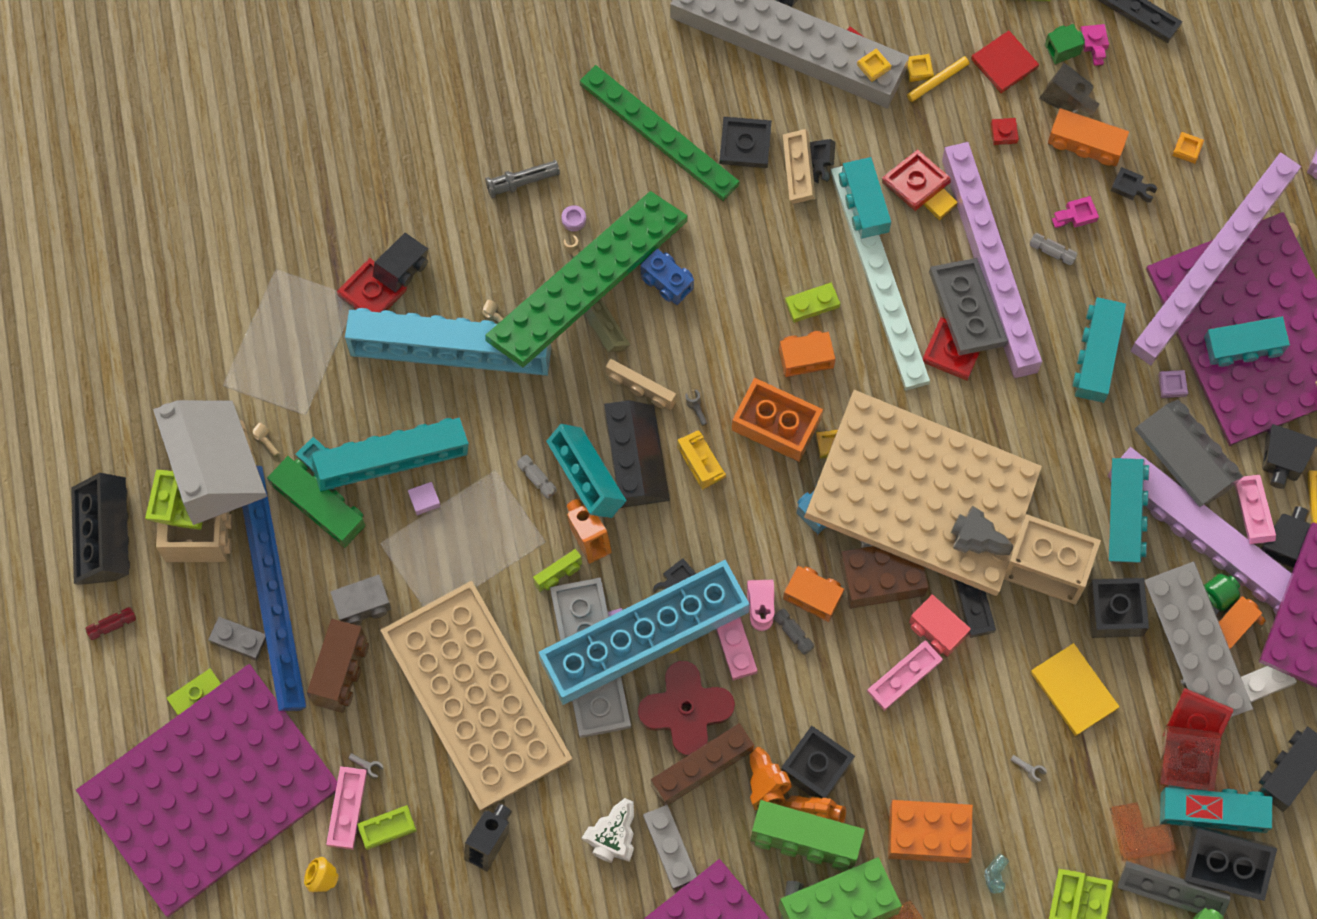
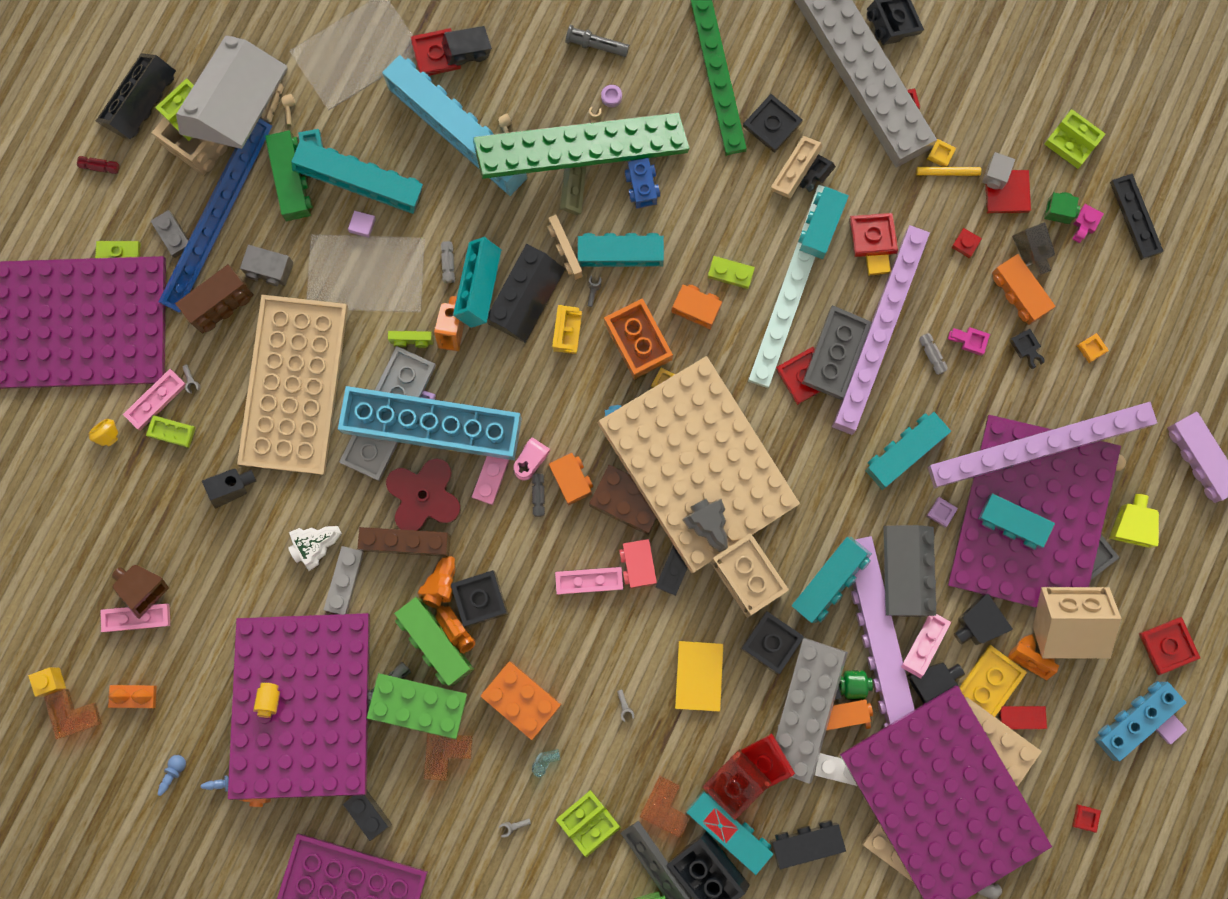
camera: 40 degrees right, 10 degrees up
(675, 574) = (487, 399): black plate -> none
(696, 351) = (621, 250): none -> teal brick
(874, 65) = (904, 128): yellow tile -> none
(984, 48) = (998, 171): none -> light grey brick

